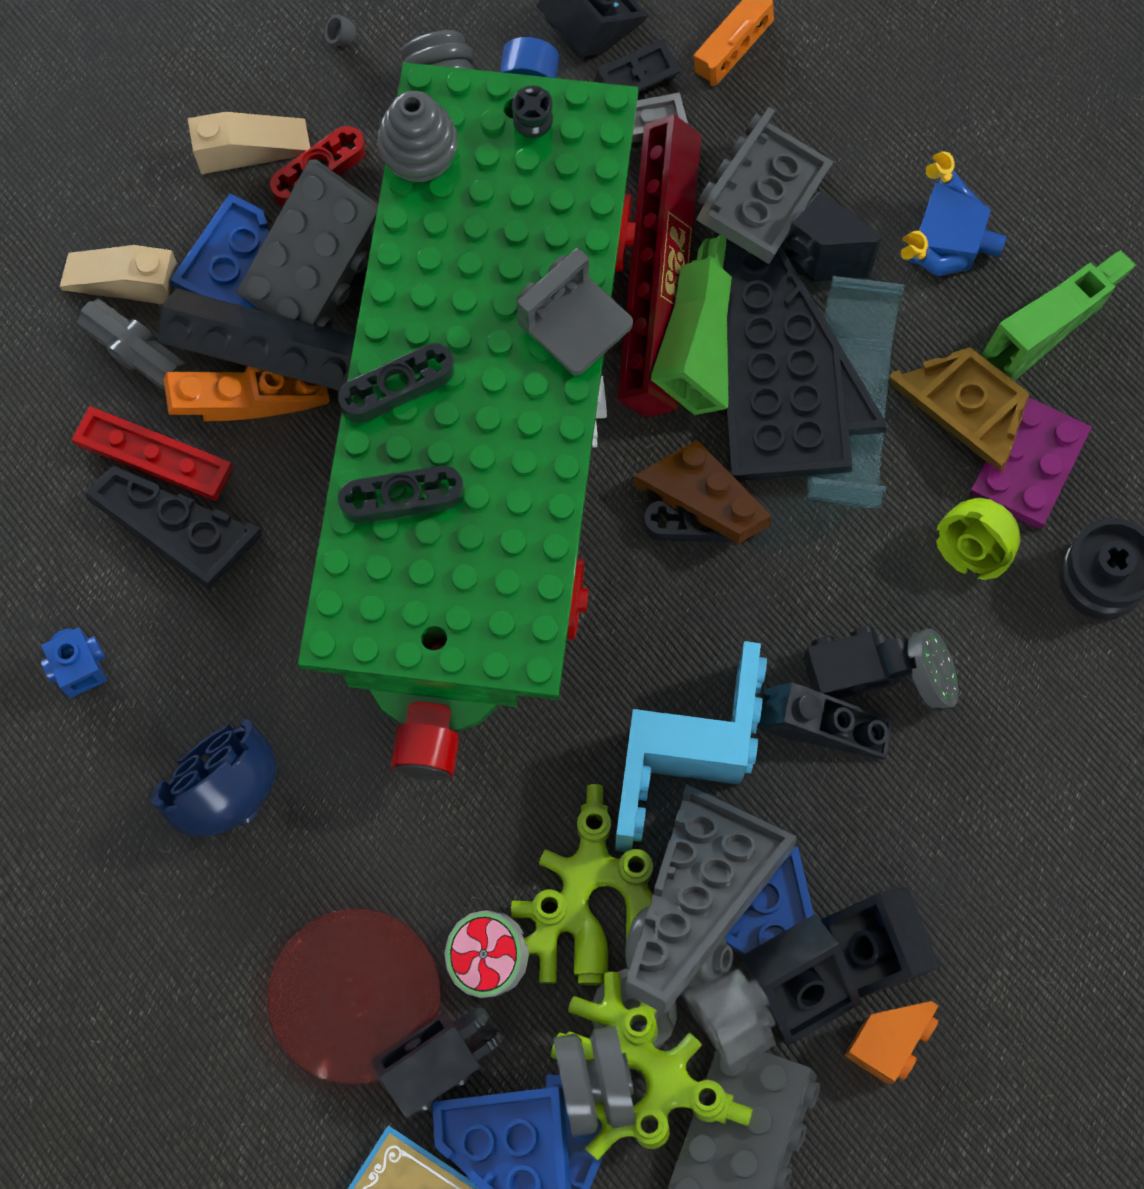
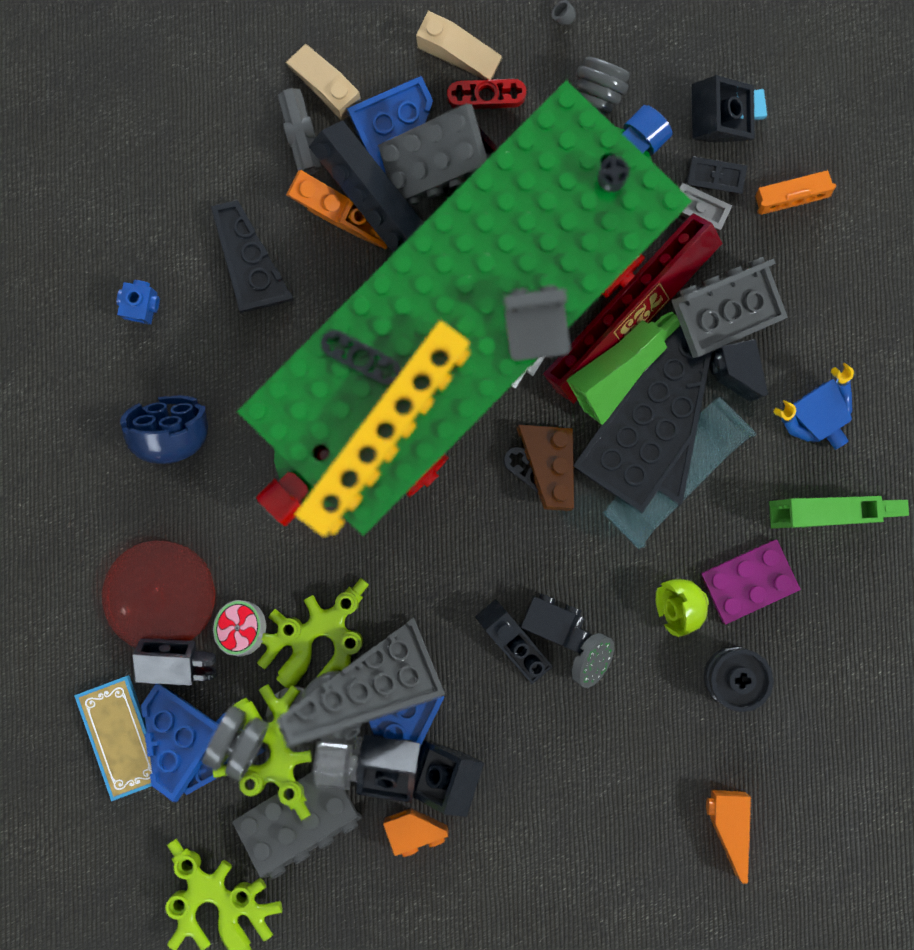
camera: 40 degrees right, 15 degrees up
(152, 453) = (265, 208): red plate -> none
(363, 384) = (387, 276): black beam -> none
(417, 137) = (530, 152): dark grey piece -> none
(486, 405) = (442, 340): none -> yellow brick
(691, 746) = (427, 603): medium azure bracket -> none
(969, 401) = (743, 523): pearl gold wing -> none

